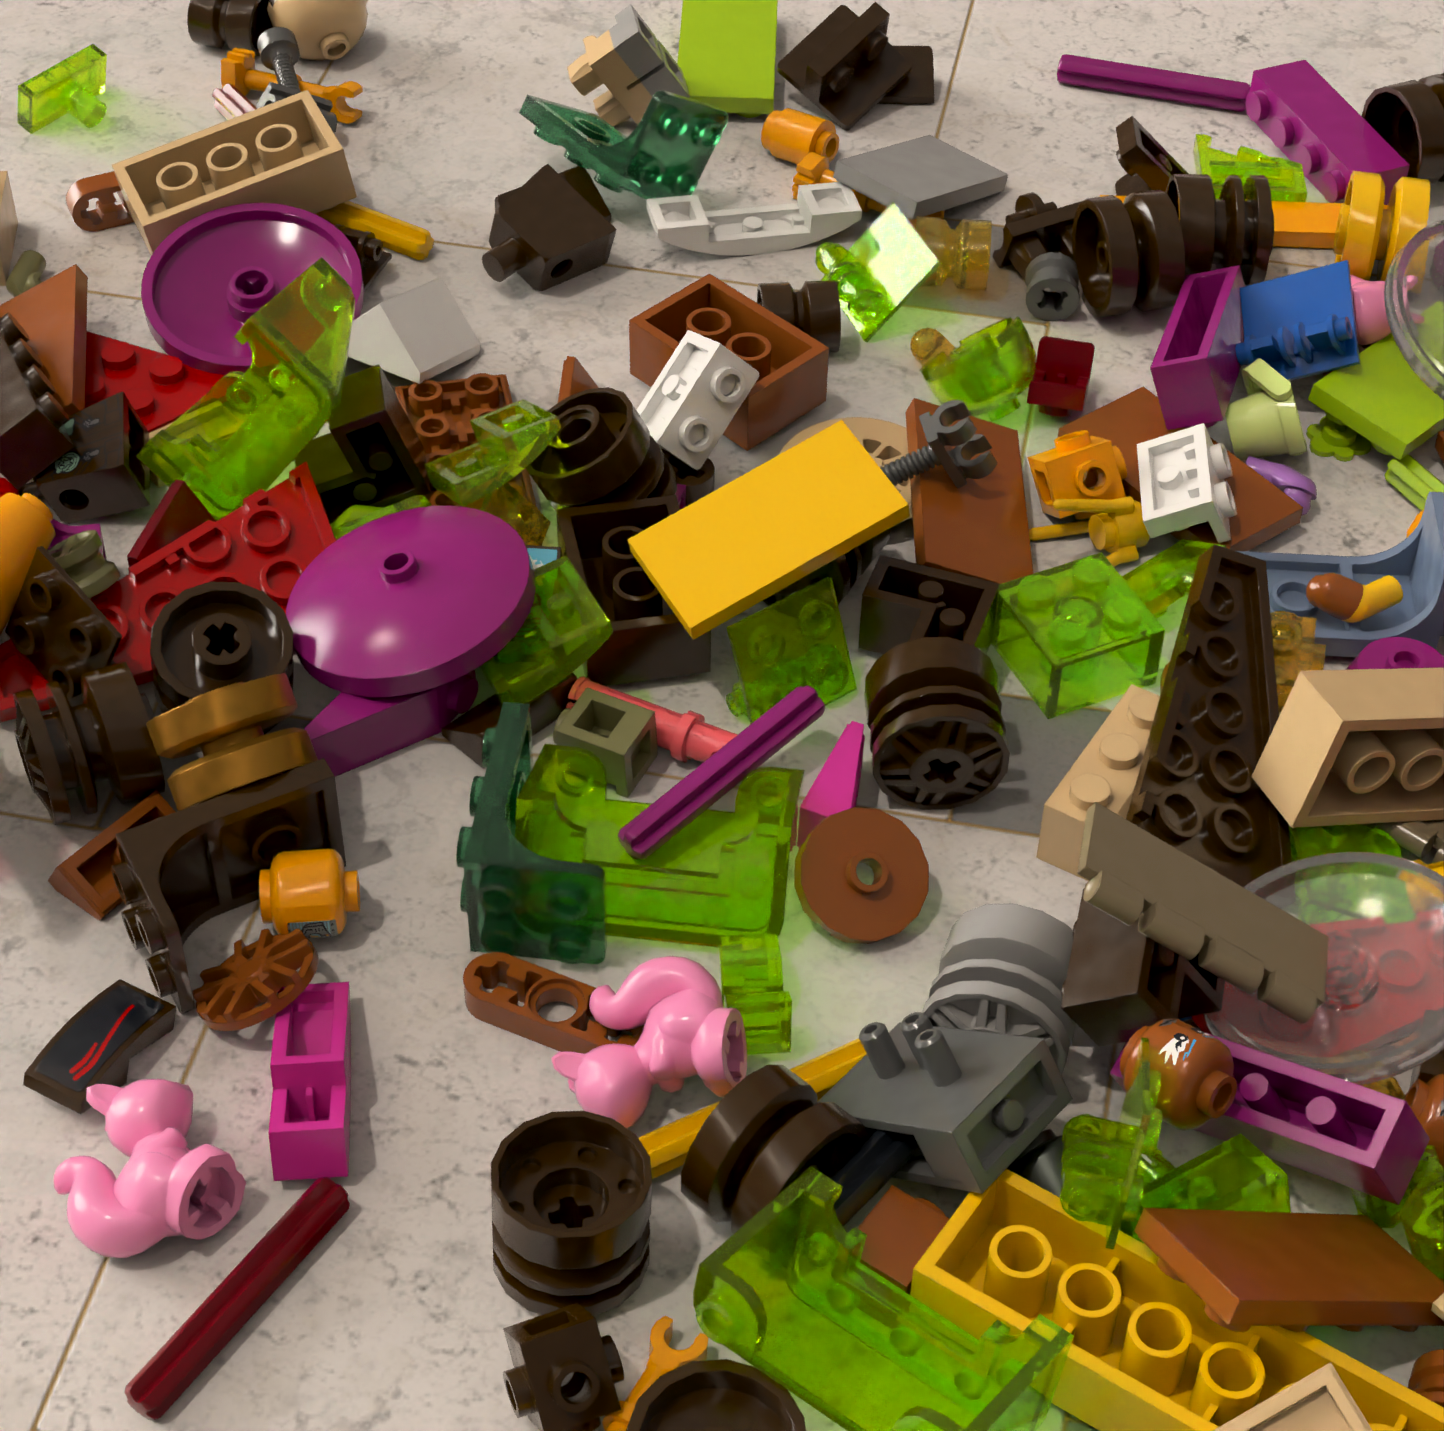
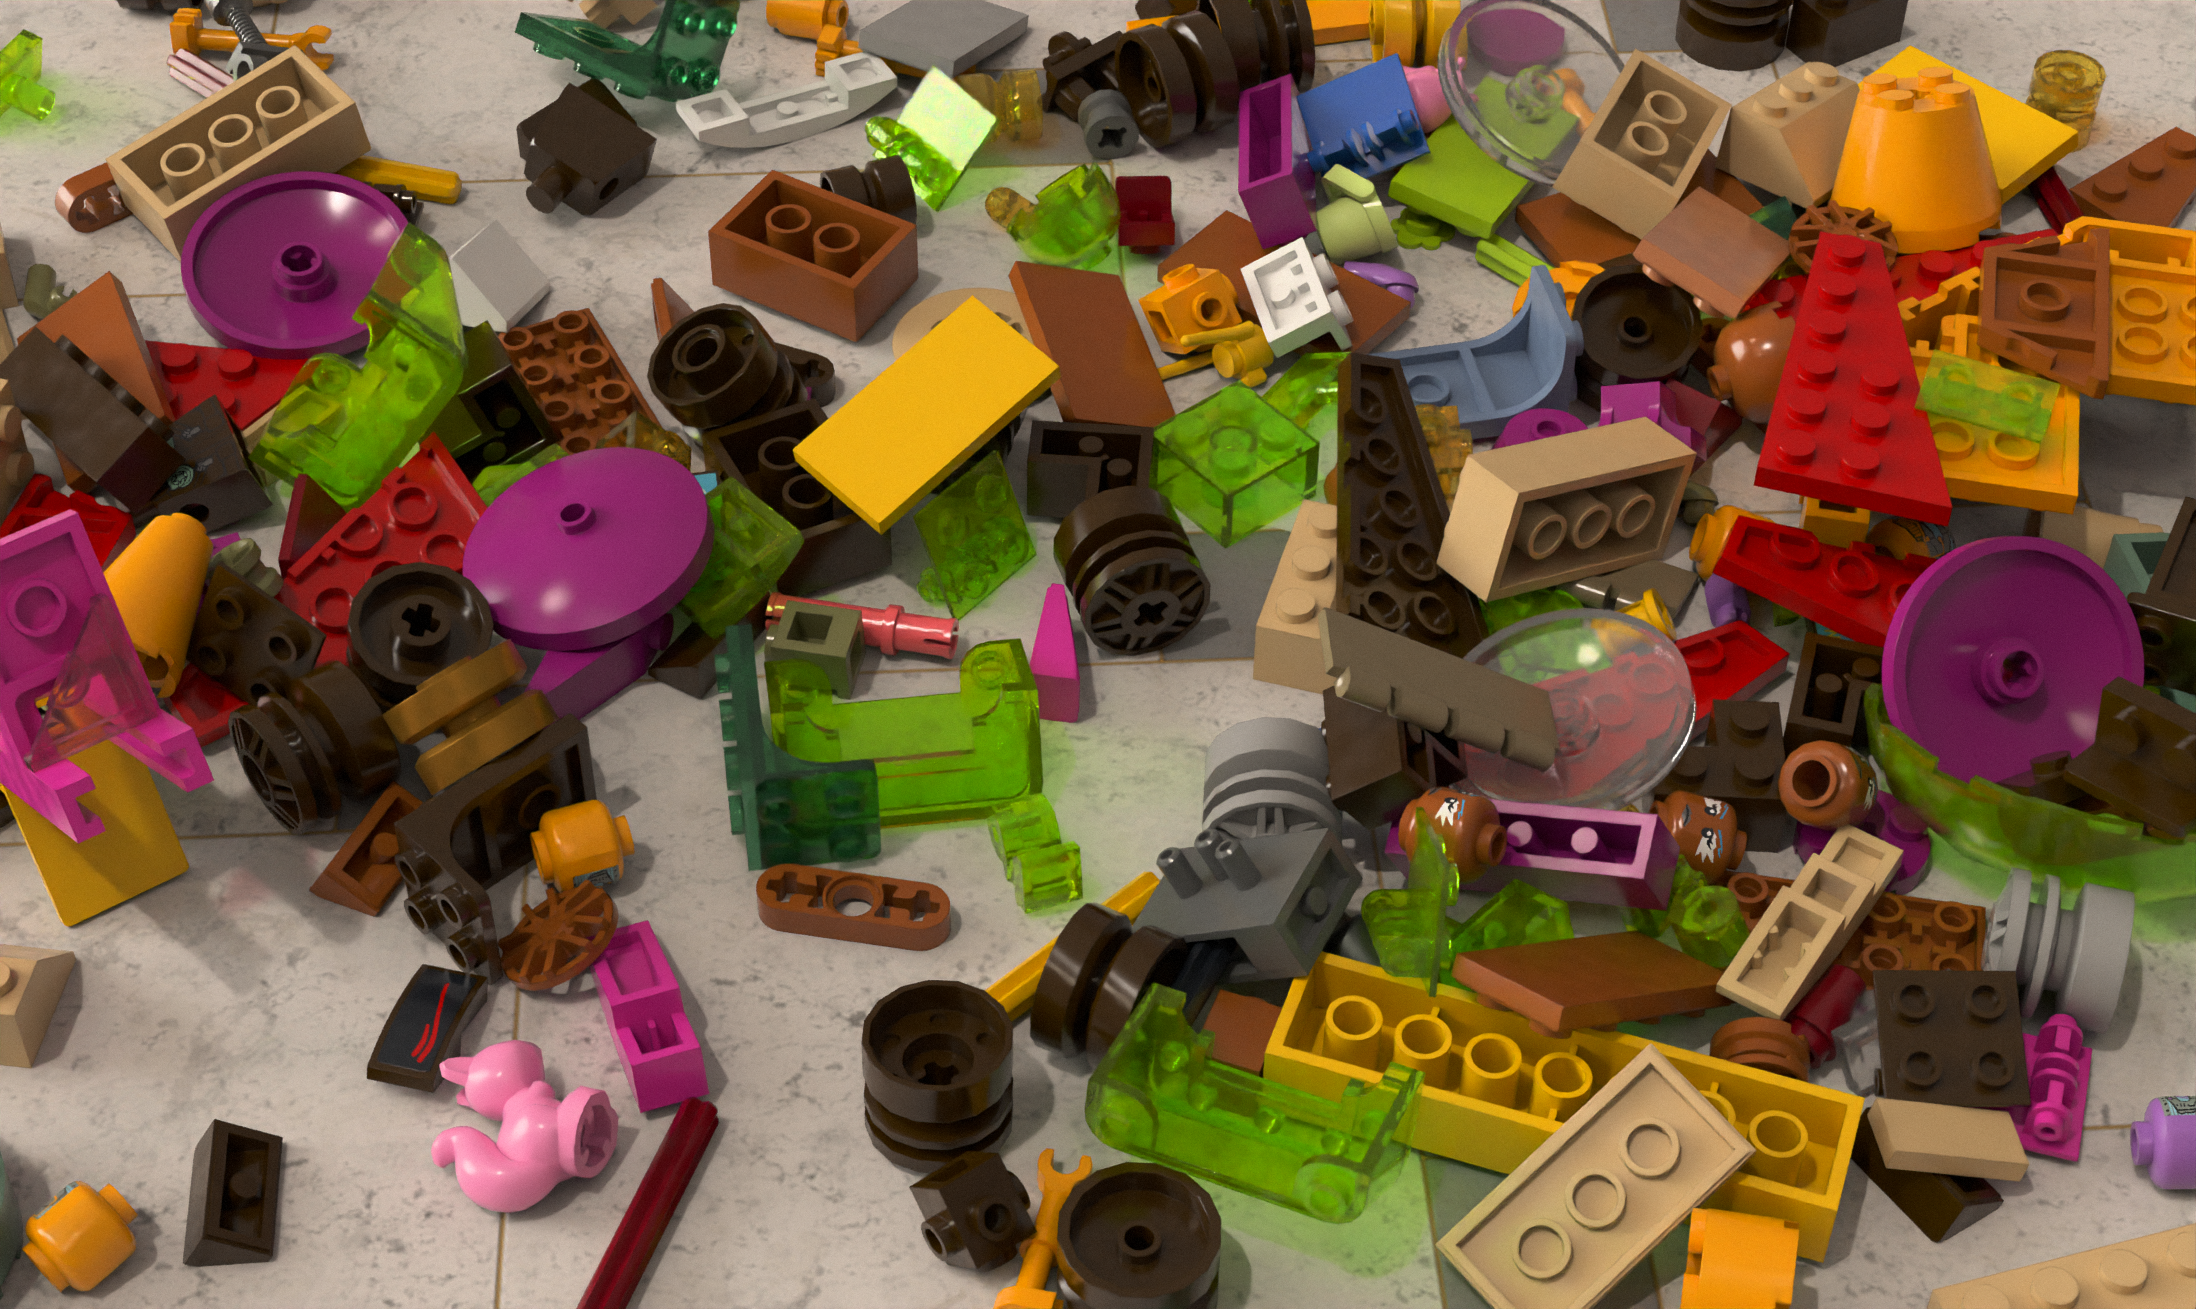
camera: 15 degrees left, 0 degrees up
(504, 448) = (628, 385): clear neon green slope -> none
(682, 1037) = (986, 902): bright pink animal -> none
(696, 398) = (803, 296): white bracket -> none
(721, 772) = (940, 656): magenta axle -> none
(829, 882) = (1080, 743): dark orange plate -> none
(940, 450) = (1083, 295): dark grey bar -> none
(1352, 600) = (1481, 382): arm -> none

